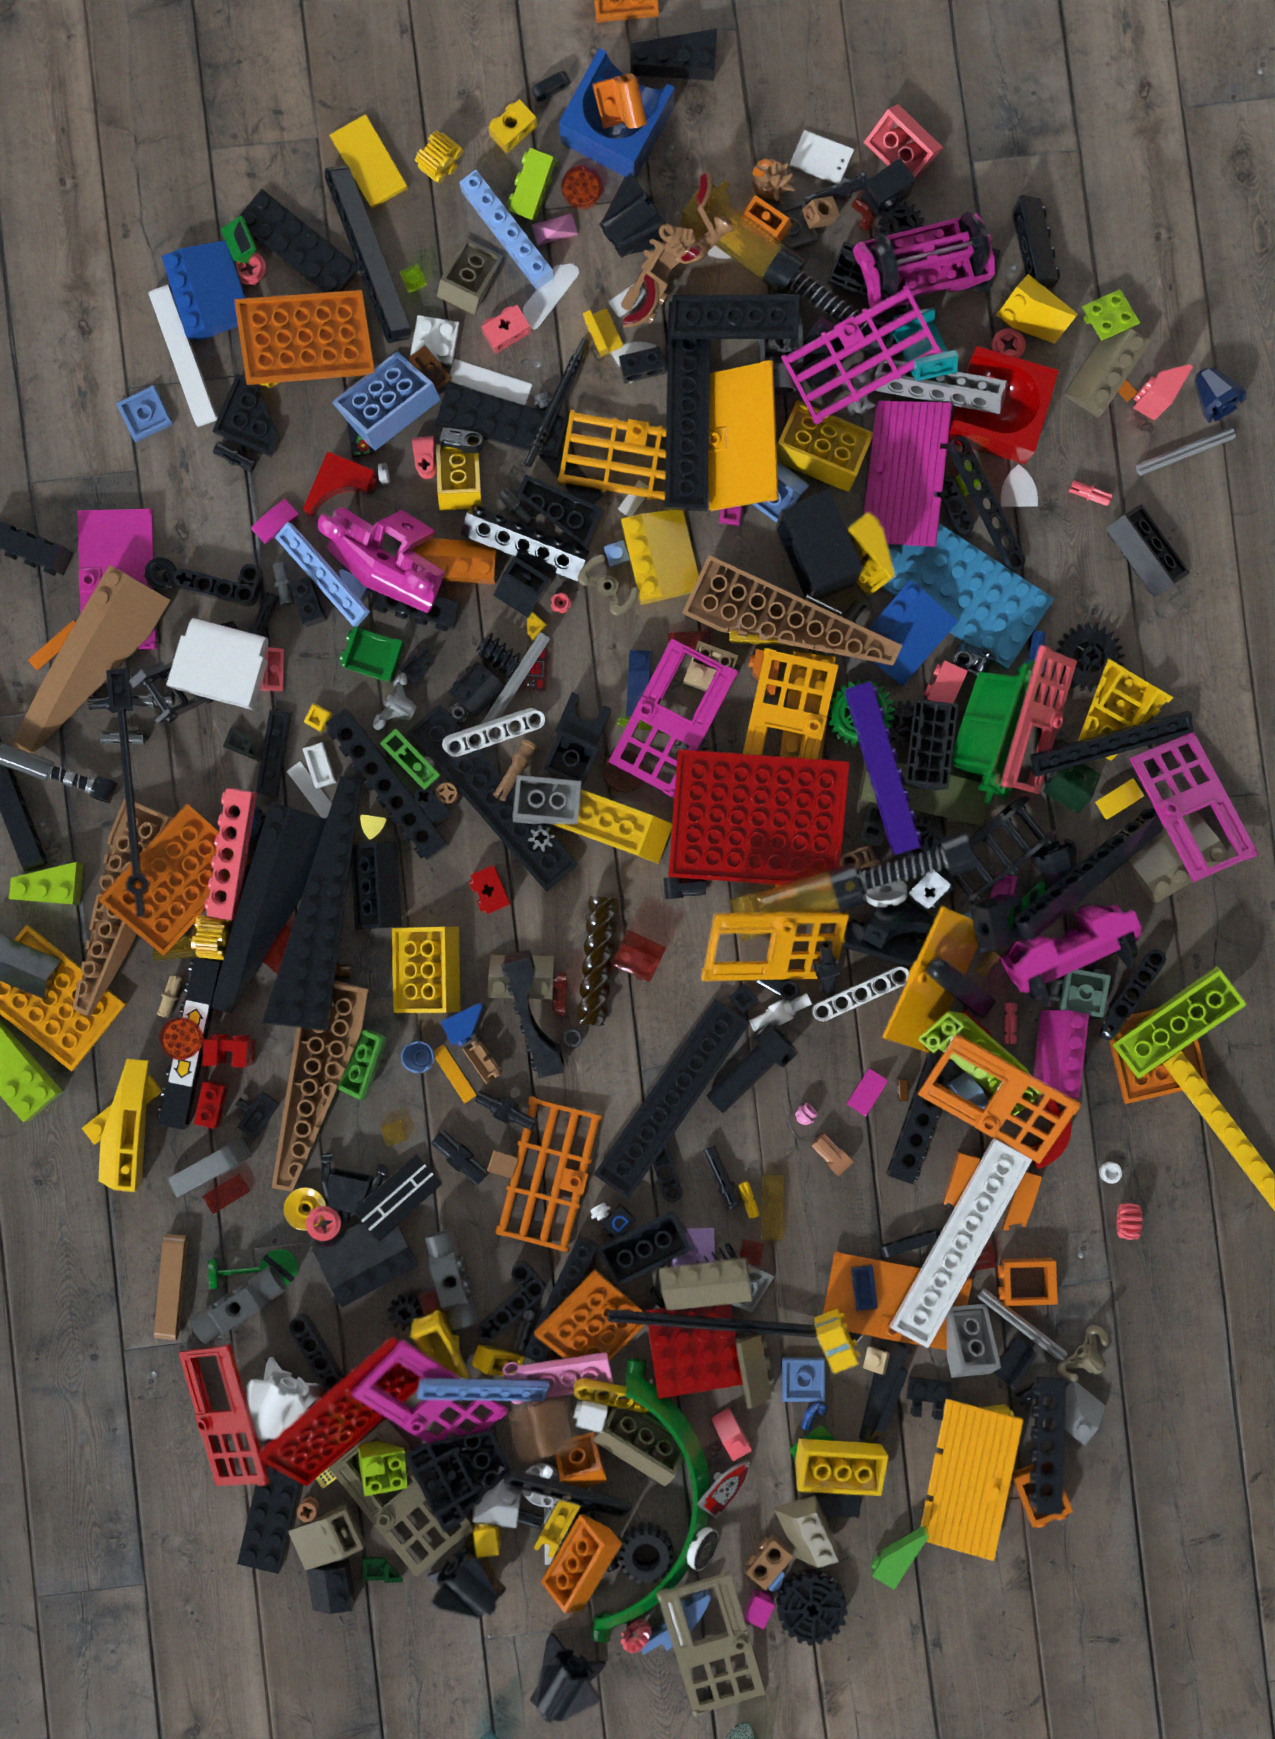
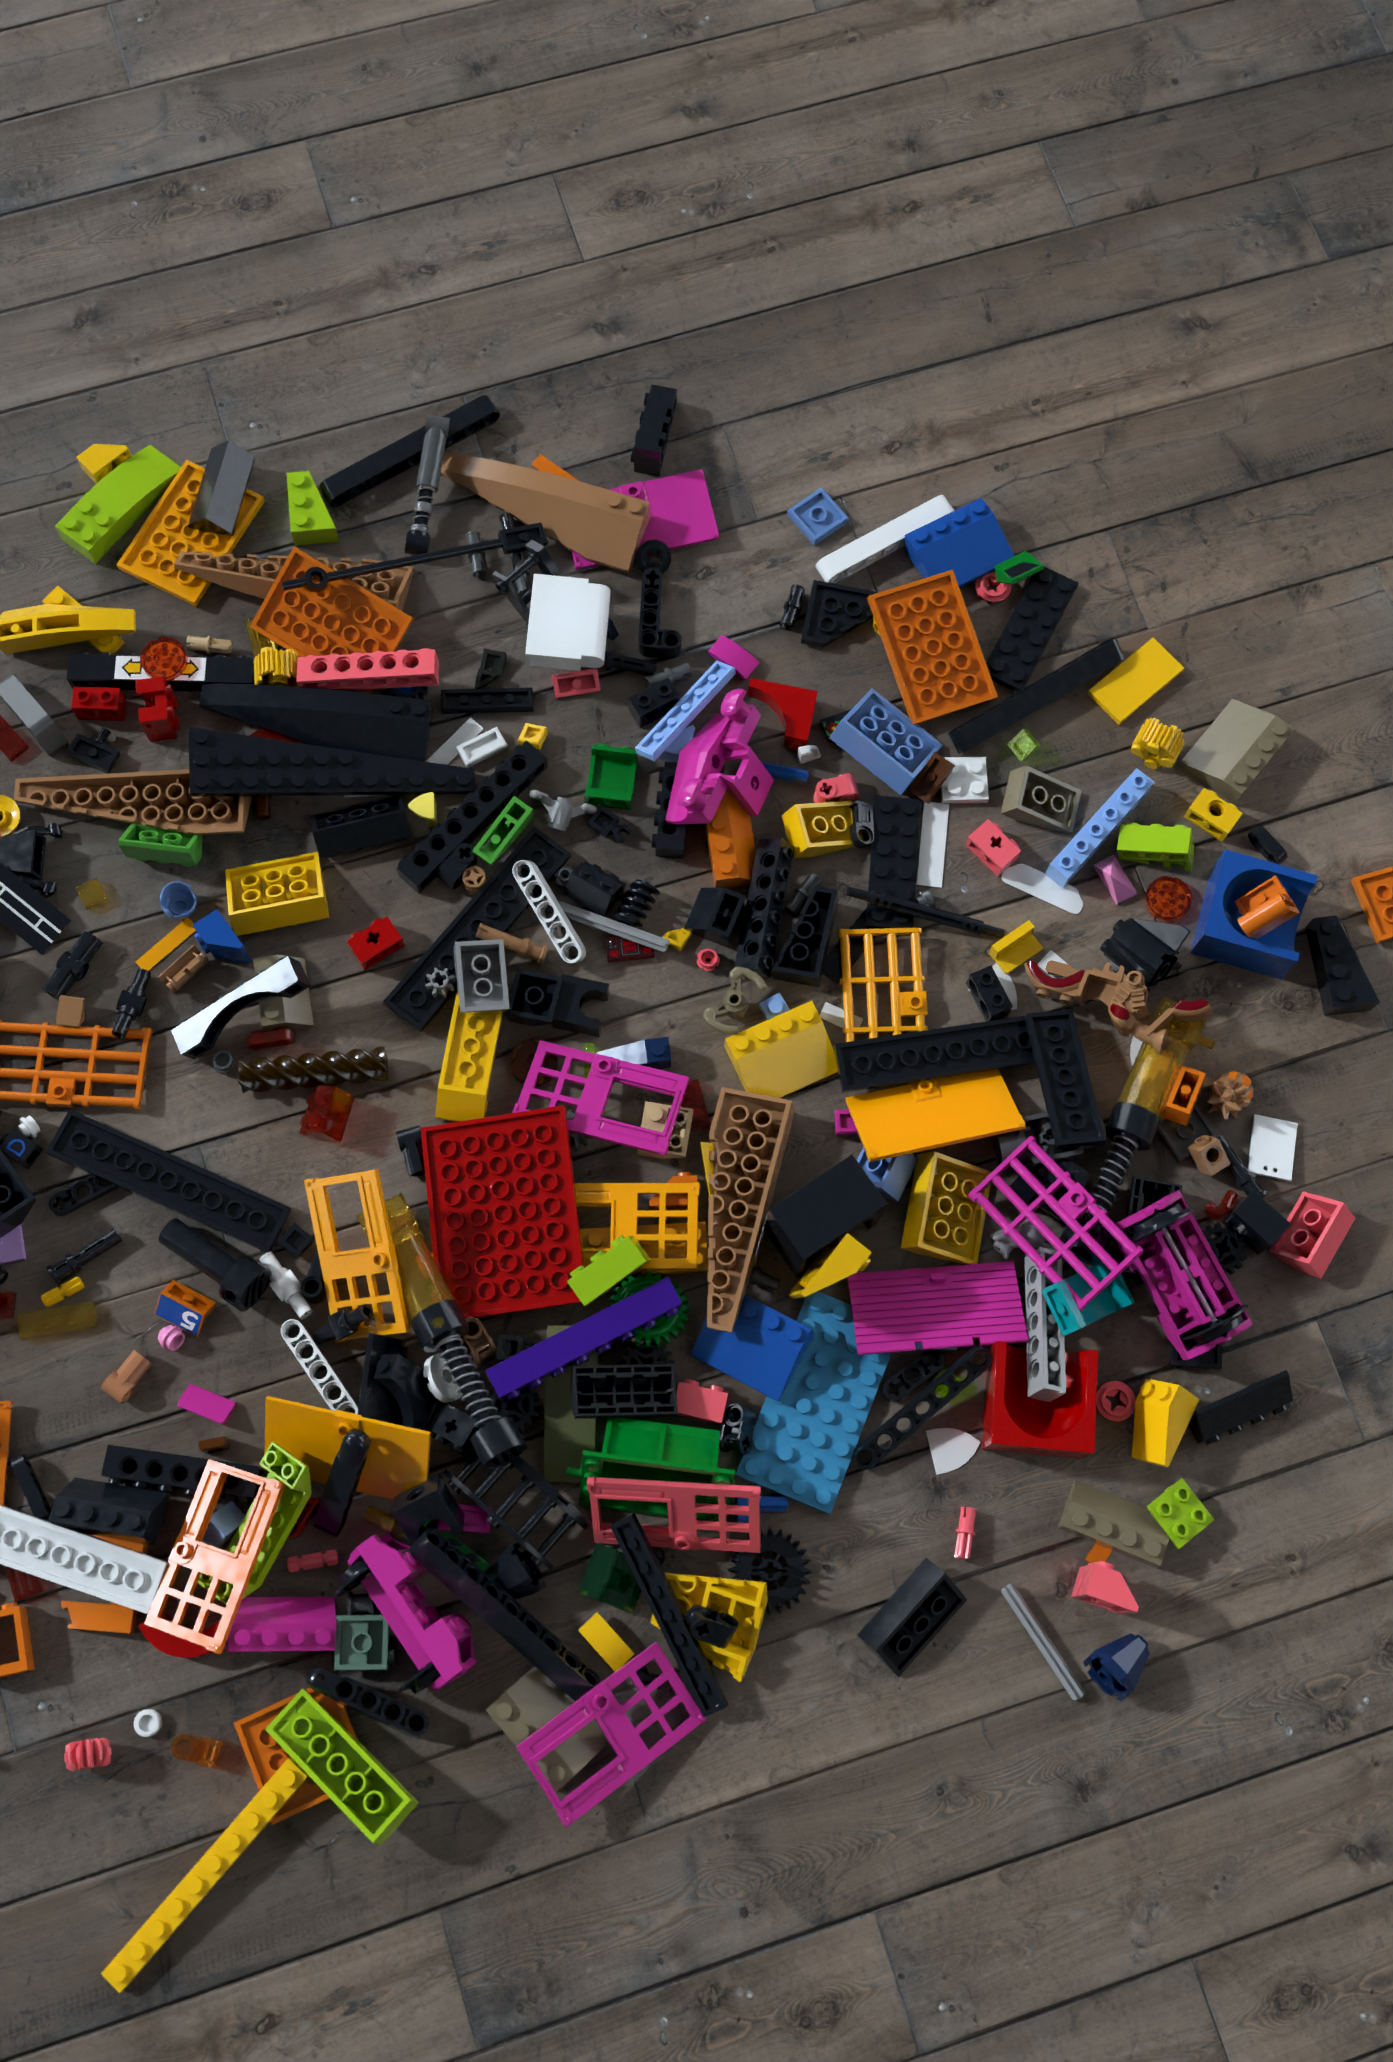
camera: 70 degrees right, 15 degrees down
(397, 498) = (787, 773): none -> blue axle
(453, 88) = (1236, 748): none -> dark tan slope
(782, 1099) = (184, 1307): none -> panel
(830, 736) = (607, 1269): none -> lime wedge
(941, 1179) = (110, 1510): none -> black slope
(1129, 710) = (711, 1625): none -> black piece
(1140, 1133) = (199, 1750): none -> clear orange piece

